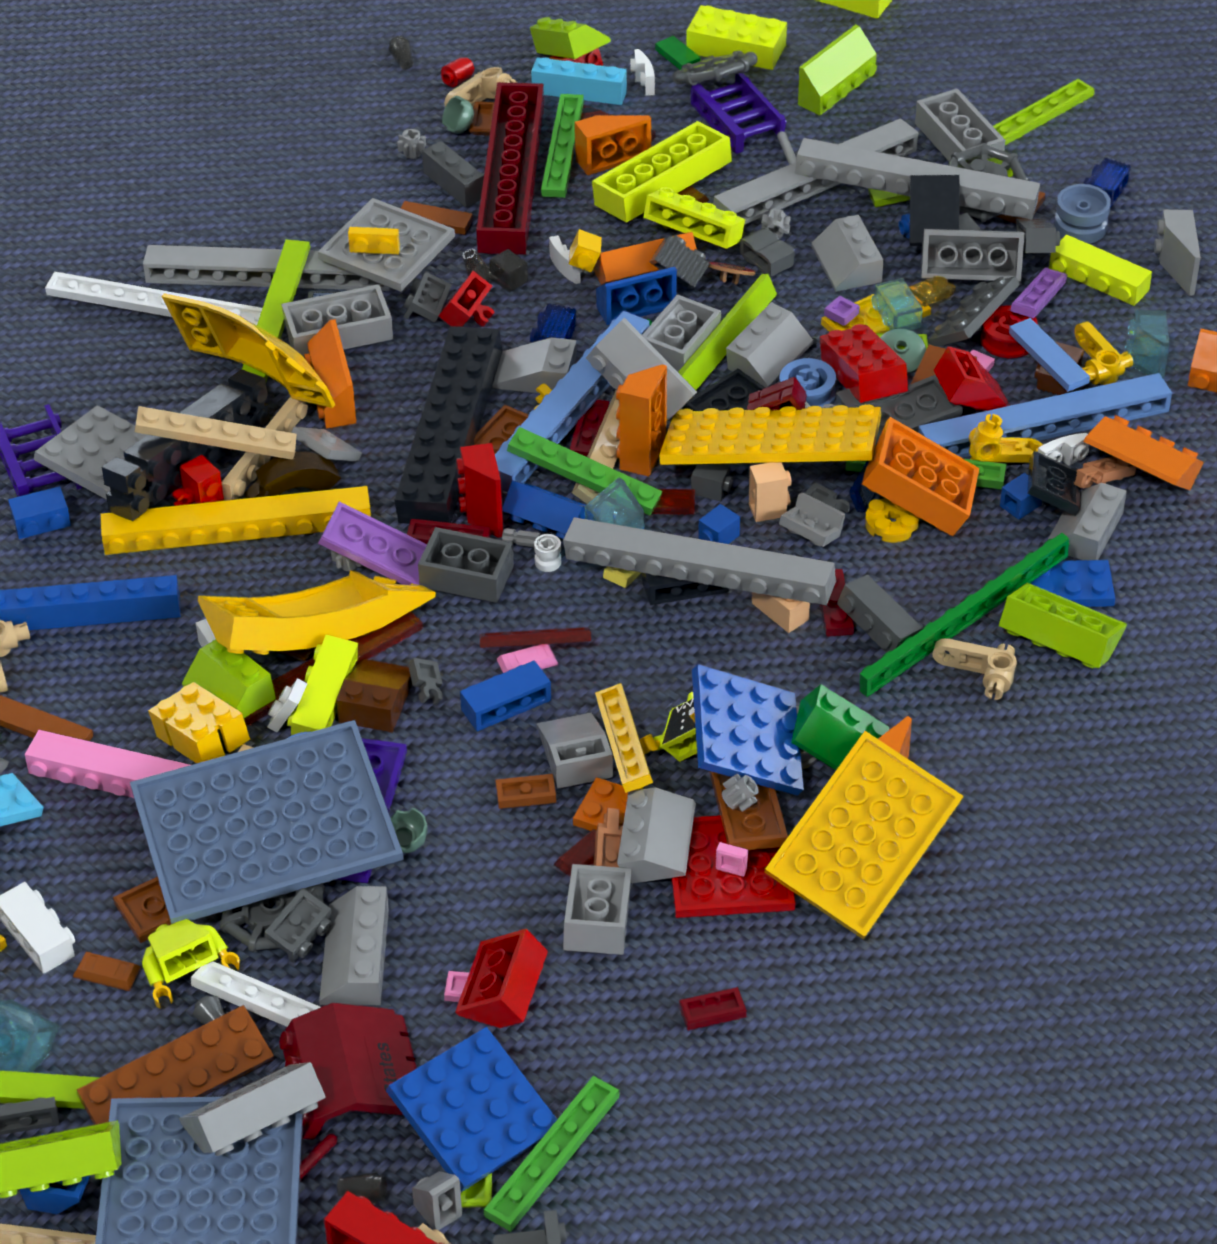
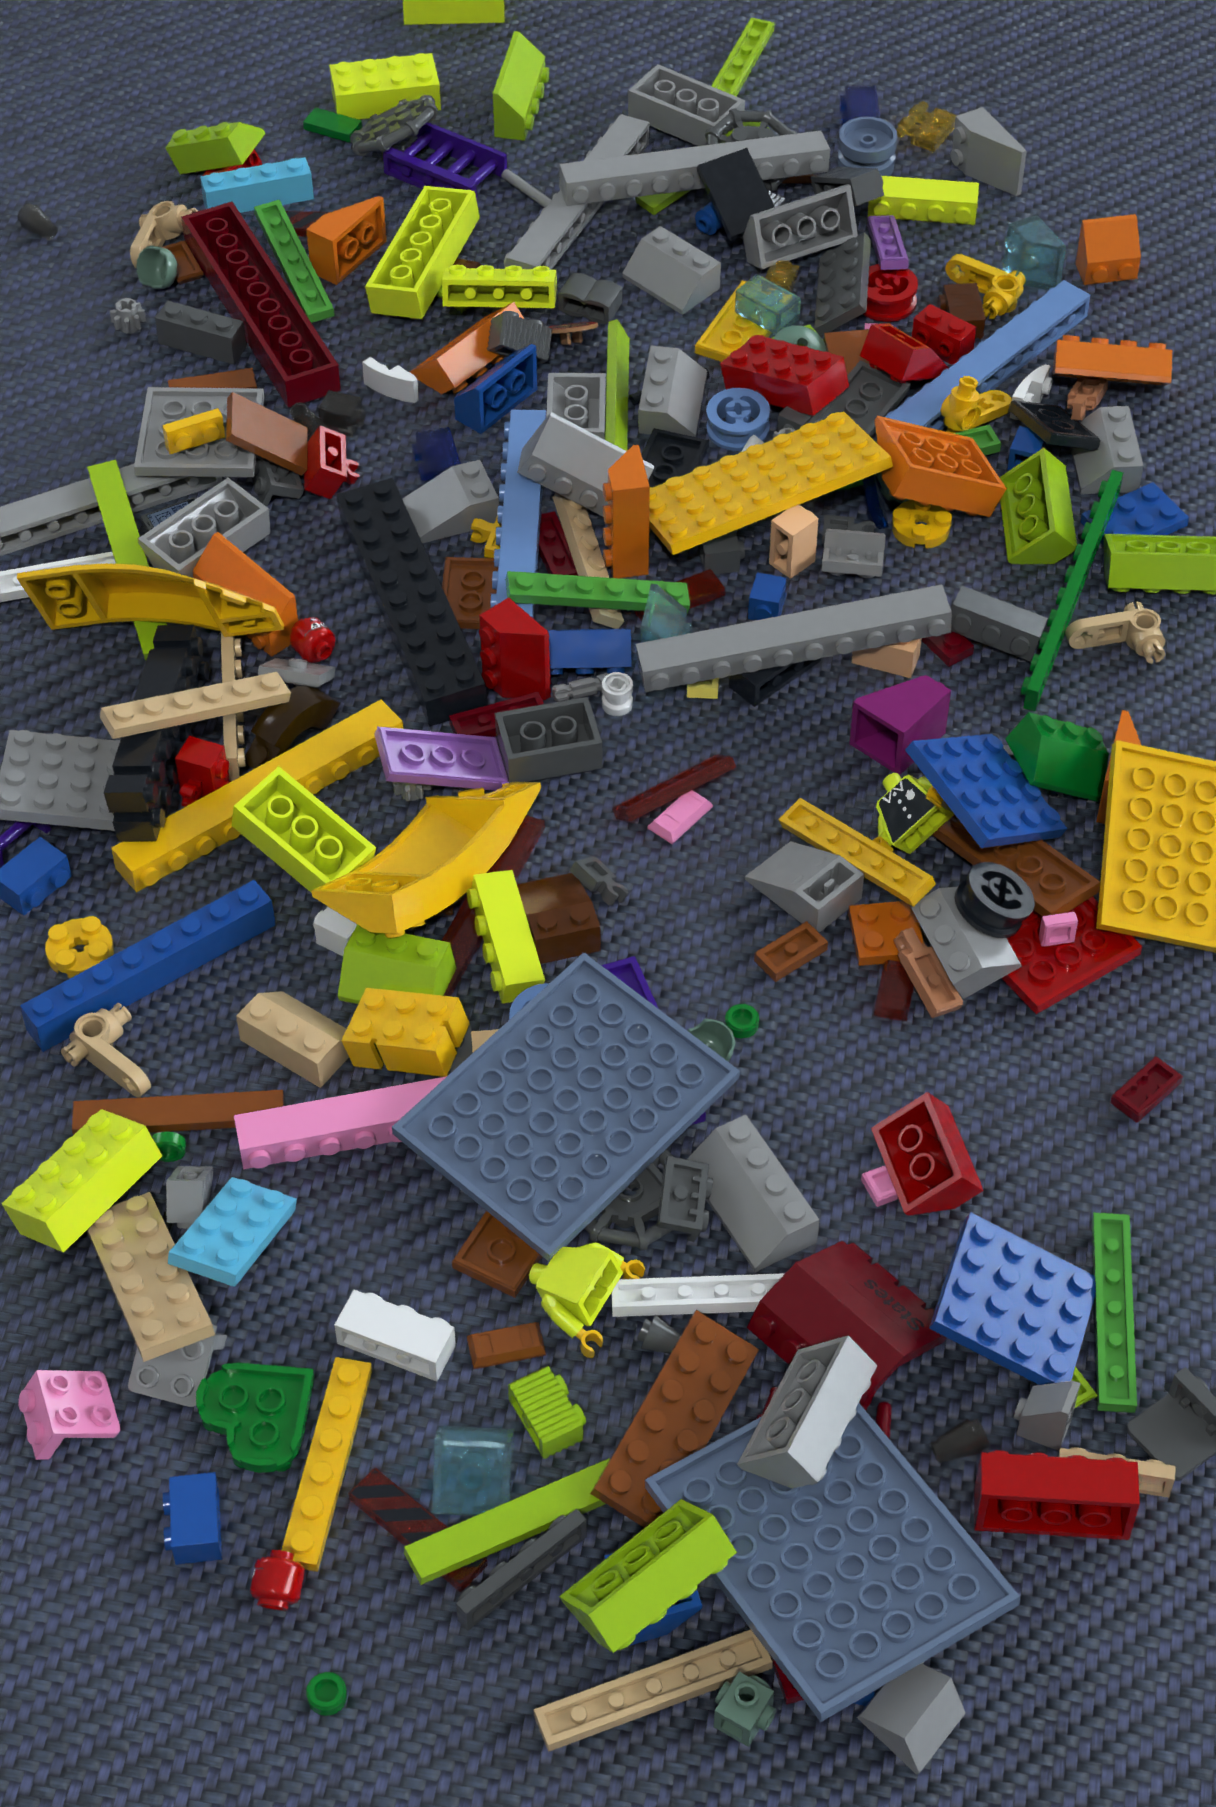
camera: 30 degrees left, 5 degrees up
(30, 564) = (75, 932): none -> yellow plate
(93, 1026) = (546, 1411): none -> lime brick
(127, 693) = (293, 1035): none -> tan slope
(232, 552) = (299, 831): none -> neon yellow brick
(288, 702) = (484, 969): white plate -> none
(356, 423) = (312, 639): none -> red head
(430, 262) = (266, 433): none -> tile
(451, 825) = (742, 1020): none -> green tile
(457, 71) = (115, 222): red brick -> none
(505, 695) = (692, 860): blue brick -> none
(585, 250) = (417, 361): yellow brick -> none
(597, 909) = (965, 1040): light grey slope -> none
(643, 72) = (317, 155): white slope -> none
(702, 825) = (994, 900): none -> black wheel
(740, 792) = (1025, 856): light grey gear -> none
(744, 651) = (896, 716): none -> magenta slope
(776, 222) = (577, 262): light grey gear -> none
(779, 395) = (728, 440): dark red brick -> none
(841, 310) = (716, 330): medium lavender plate -> none
(991, 544) = (1038, 511): none -> lime slope
(1025, 378) = (944, 333): none -> red brick
(1049, 354) = (953, 299): medium blue tile -> none
(1147, 219) = (933, 129): none -> clear yellow plate

